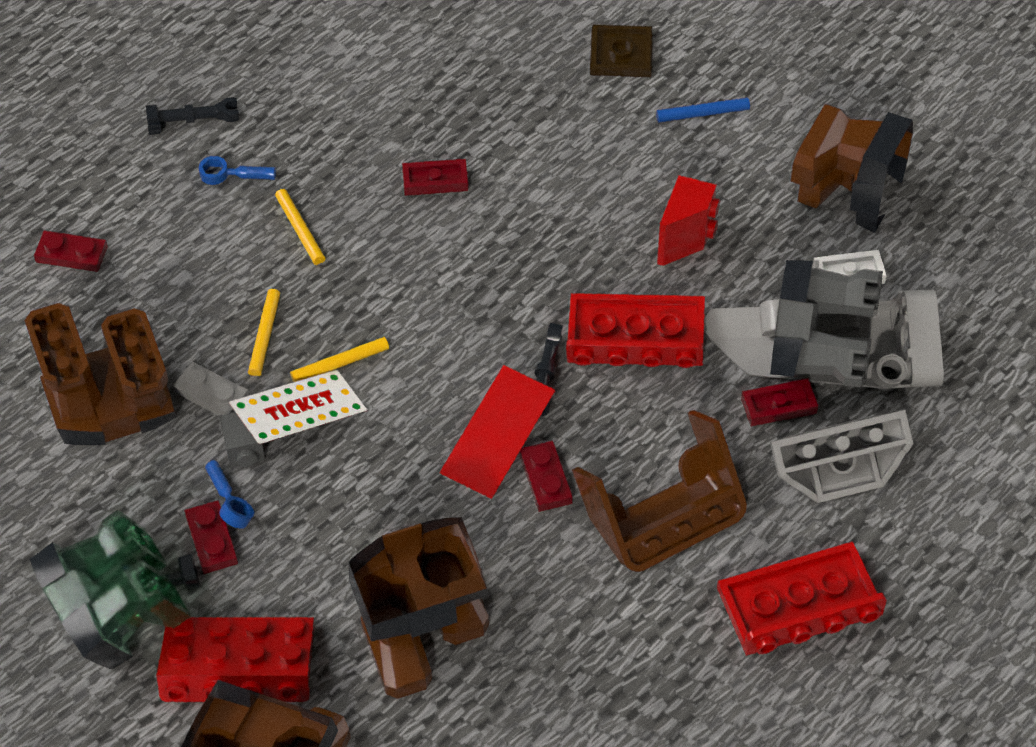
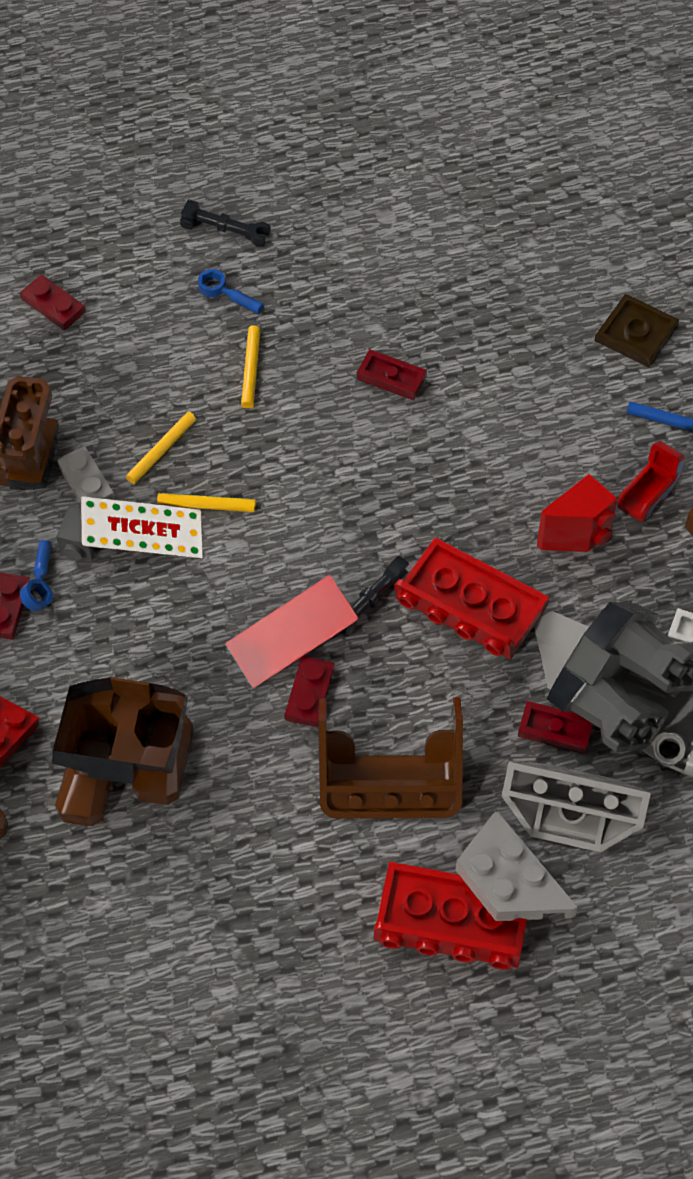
camera: 30 degrees right, 5 degrees up
(725, 161) = (653, 482): none -> red animal
(830, 540) = (509, 876): none -> light grey wing

